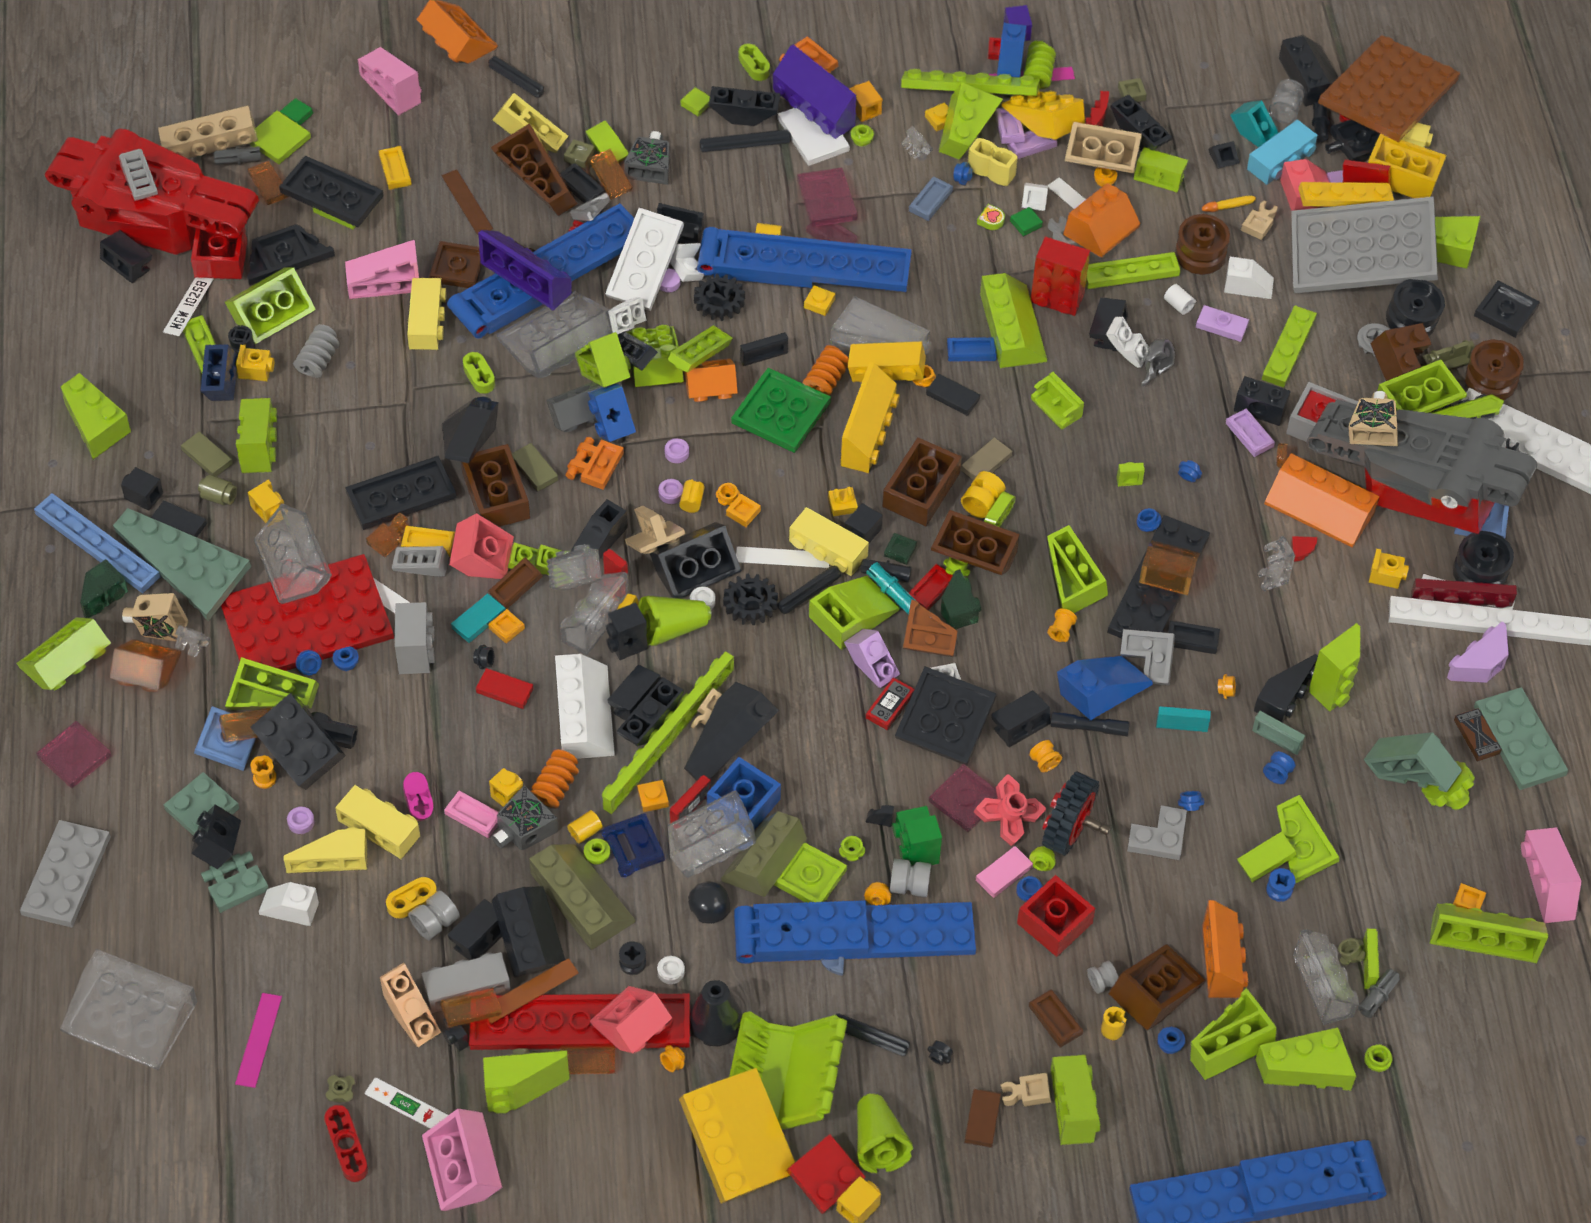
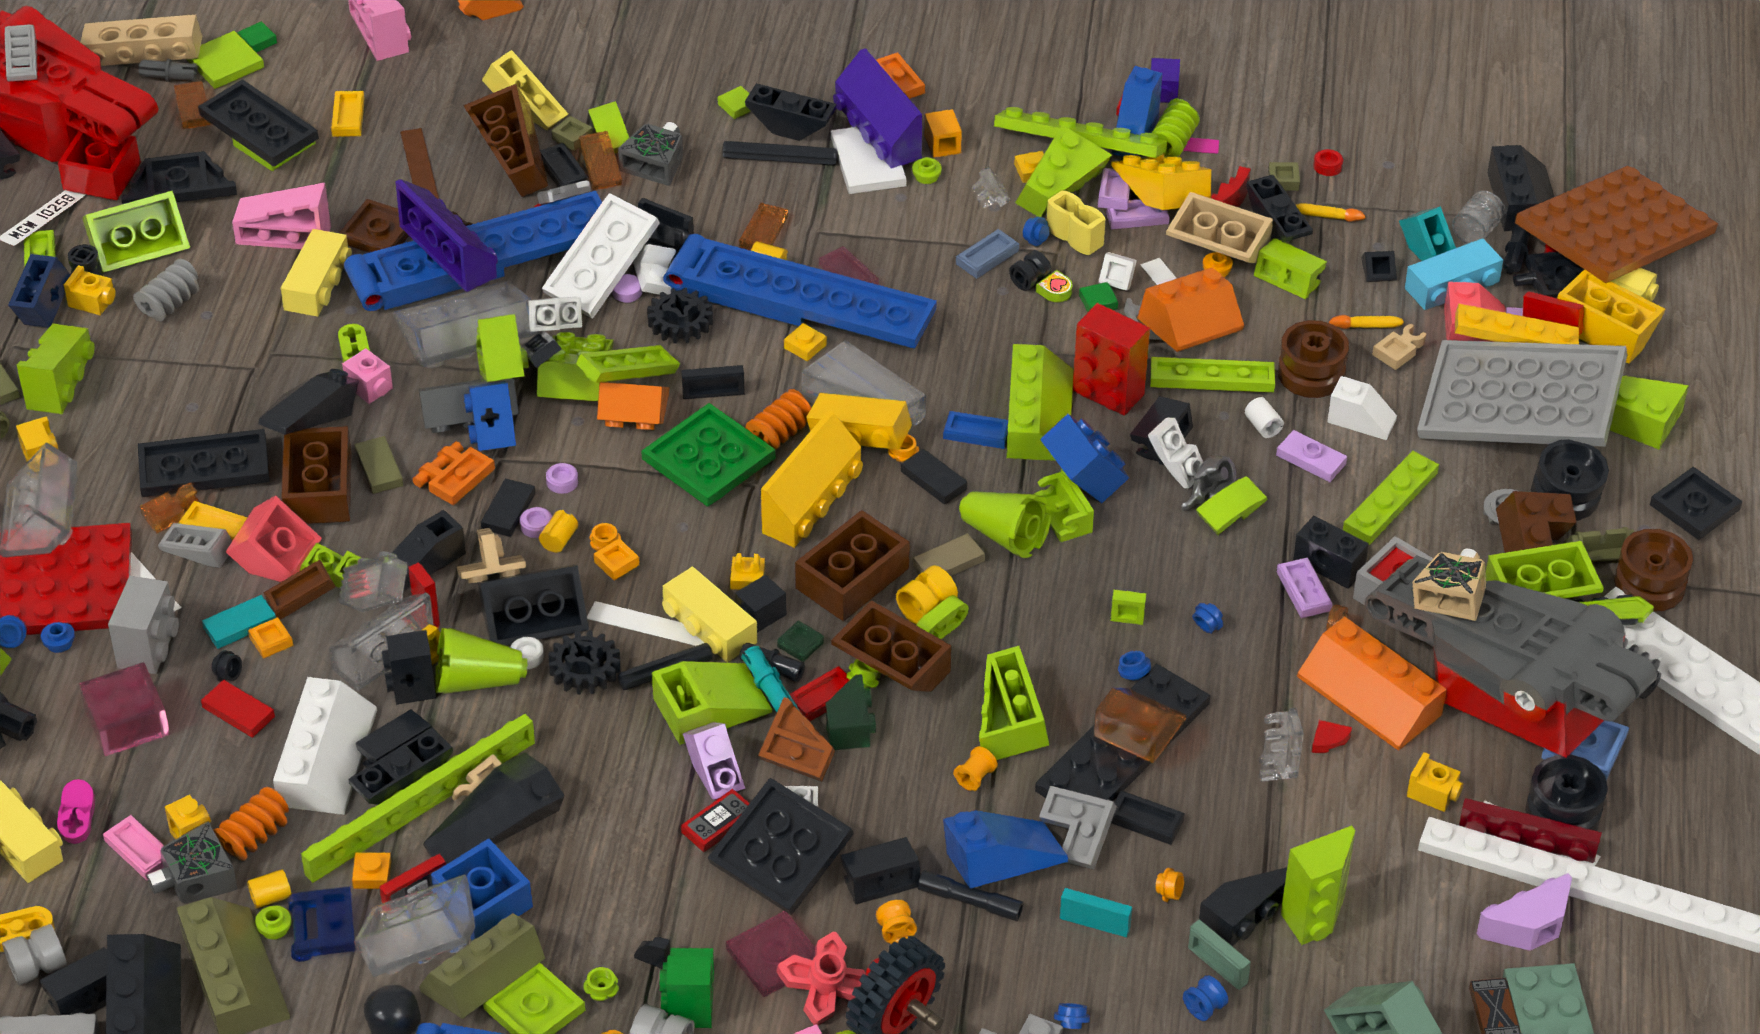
camera: 15 degrees right, 10 degrees down
(422, 707) = (124, 709): none -> clear pink brick
(501, 391) = (372, 374): none -> bright pink brick
(516, 76) = (531, 41): black axle -> none
(645, 483) = (508, 507): none -> black tile
(750, 64) = (819, 73): lime beam -> none
(754, 207) = (763, 226): none -> clear orange tile
(827, 197) = (856, 229): clear pink tile -> none
(969, 208) = (1027, 272): none -> black wheel
(1022, 421) = (1009, 519): none -> lime cone
(1065, 360) = (1085, 457): none -> blue brick
(1160, 72) = (1328, 162): none -> red tile
(1175, 115) = (1330, 212): none -> yellow piece
(1178, 376) = (1230, 504): none -> lime slope

